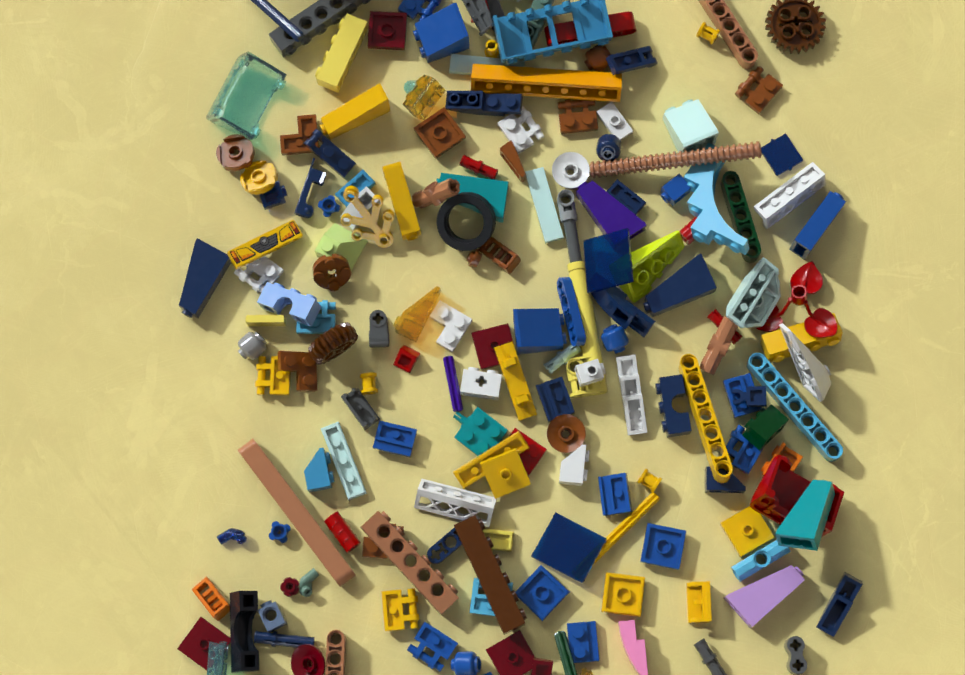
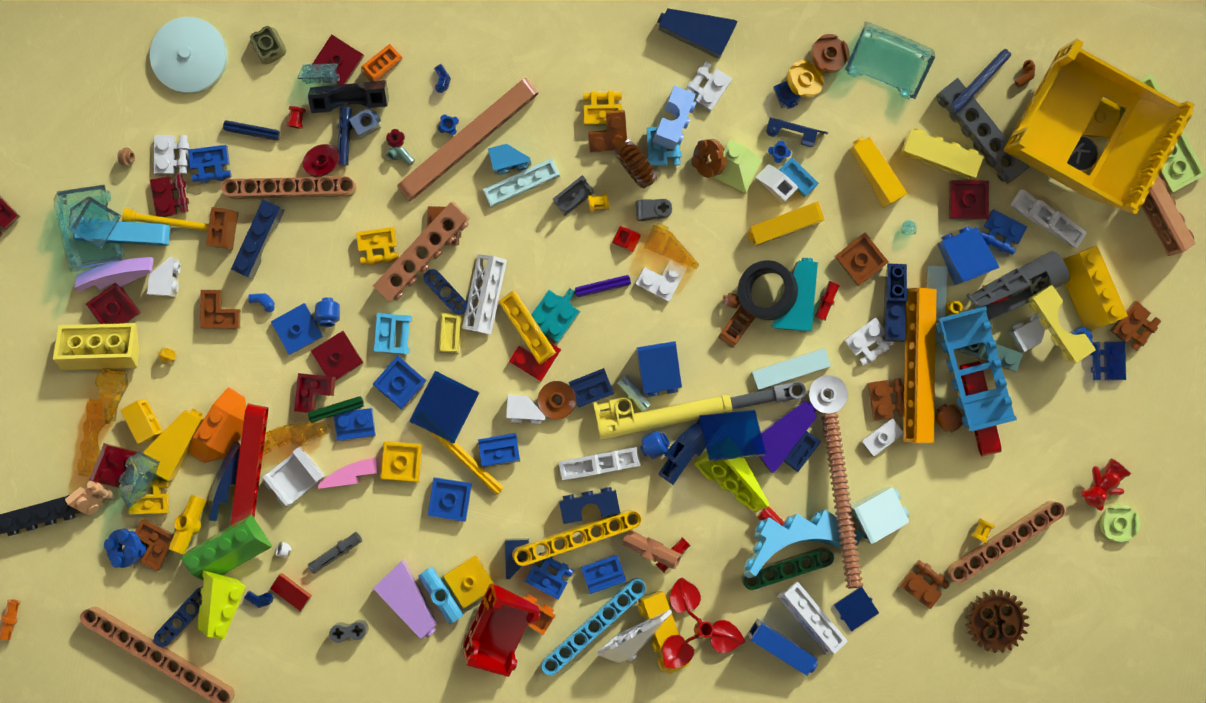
camera: 80 degrees right, 10 degrees up
(251, 345) = (631, 84): light grey head -> none
(264, 244) = (735, 89): tile -> none
(265, 320) = (657, 92): light yellow tile -> none
(294, 143) = (847, 124): dark orange plate -> none
(330, 153) = (833, 149): dark blue plate -> none
(342, 532) = (450, 185): red axle -> none
(368, 220) = (763, 191): yellow plant -> none
(395, 438) = (544, 231): blue plate -> none
(423, 97) = (898, 240): clear yellow brick -> none
(434, 640) = (348, 282): blue plate -> none
(436, 193) = (794, 258): nougat piece -> none
(471, 388) = (601, 302): white brick -> none
(486, 340) = (642, 325): dark red plate -> none
(490, 575) = (412, 330): reddish brown brick -> none
(505, 473) = (513, 341): yellow plate -> none
(510, 156) = (840, 332): dark orange slope -> none
(515, 381) = (607, 347): yellow hinge -> none
(571, 311) = (680, 400): blue beam -> none
(589, 372) = (616, 421): white brick -> none
(608, 147) = (853, 432): dark blue head -> none
(631, 60) = (948, 452): dark blue plate -> none
(649, 480) = (514, 484): yellow bush -> none
(675, 190) = (812, 501): blue brick -> none
(682, 287) = (710, 510): dark blue slope -> none
(699, 602) = (396, 535): yellow hinge -> none
(754, 396) = (600, 585): dark blue plate -> none
(755, 296) = (703, 584): light aqua wedge -> none
(765, 426) = (570, 597): dark green brick -> none
(808, 517) = (476, 641): teal slope -> none
(839, 604) = (401, 673): dark blue slope -> none

